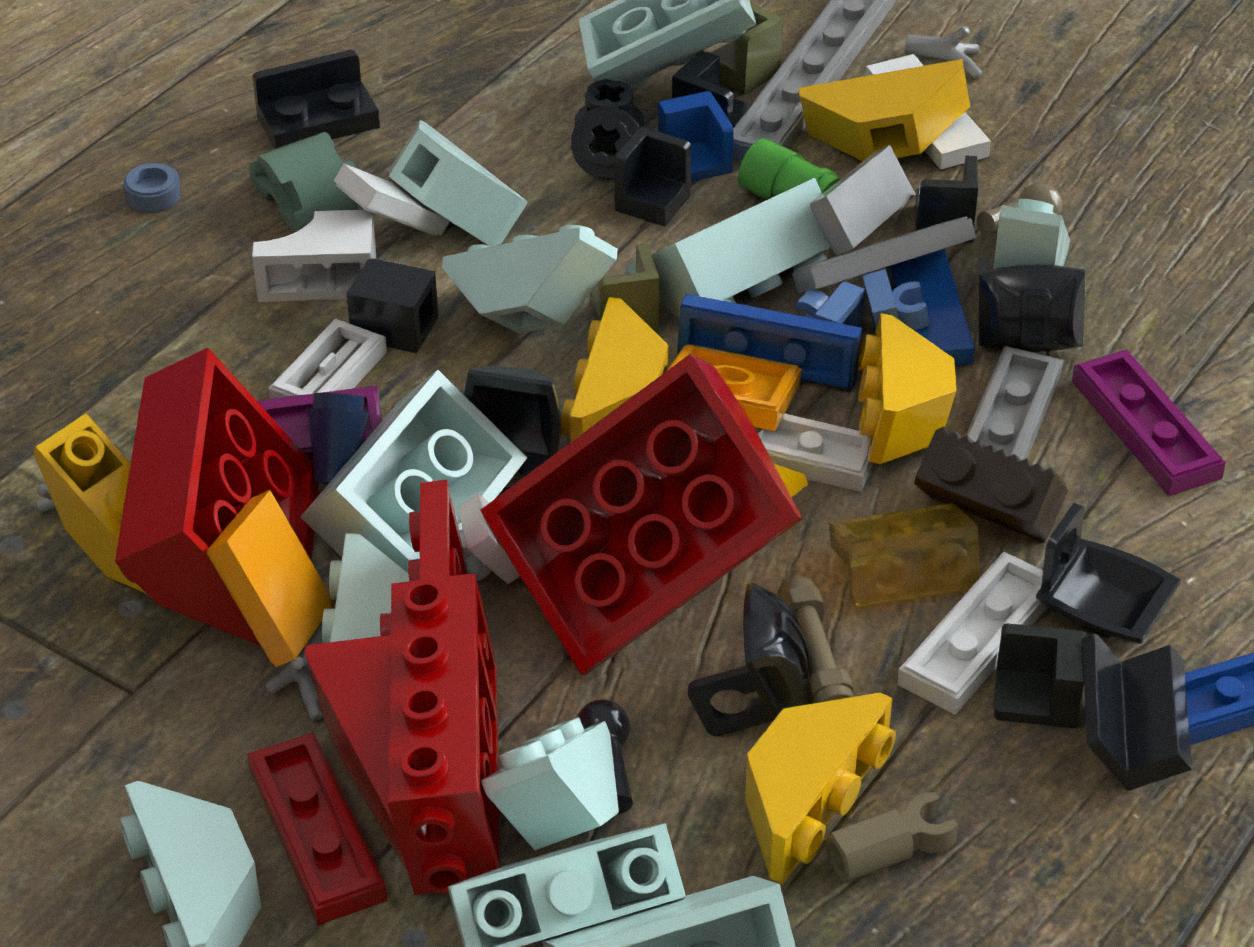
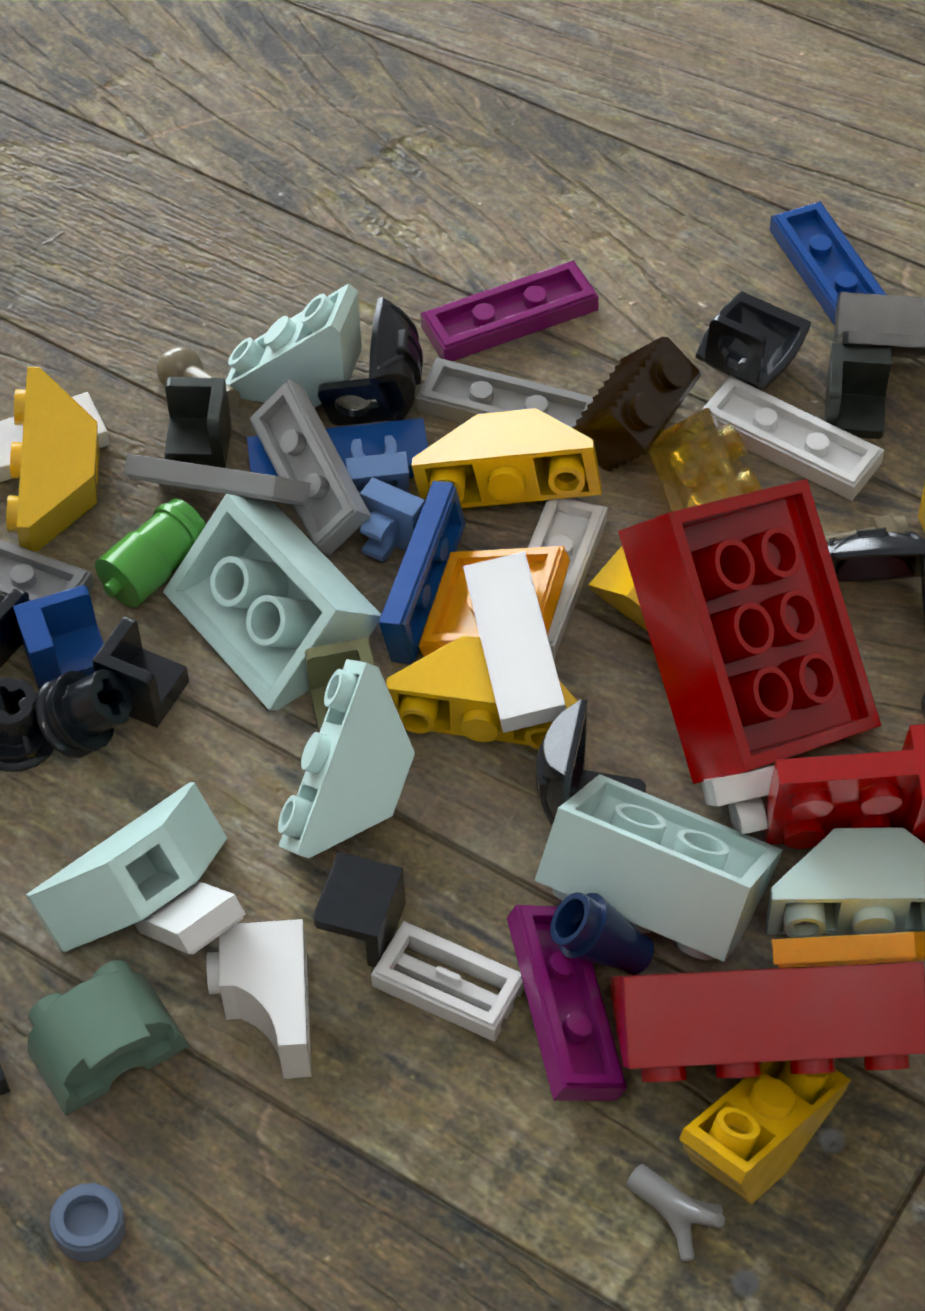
camera: 90 degrees left, 10 degrees up
(634, 363) = (514, 642): none -> white tile

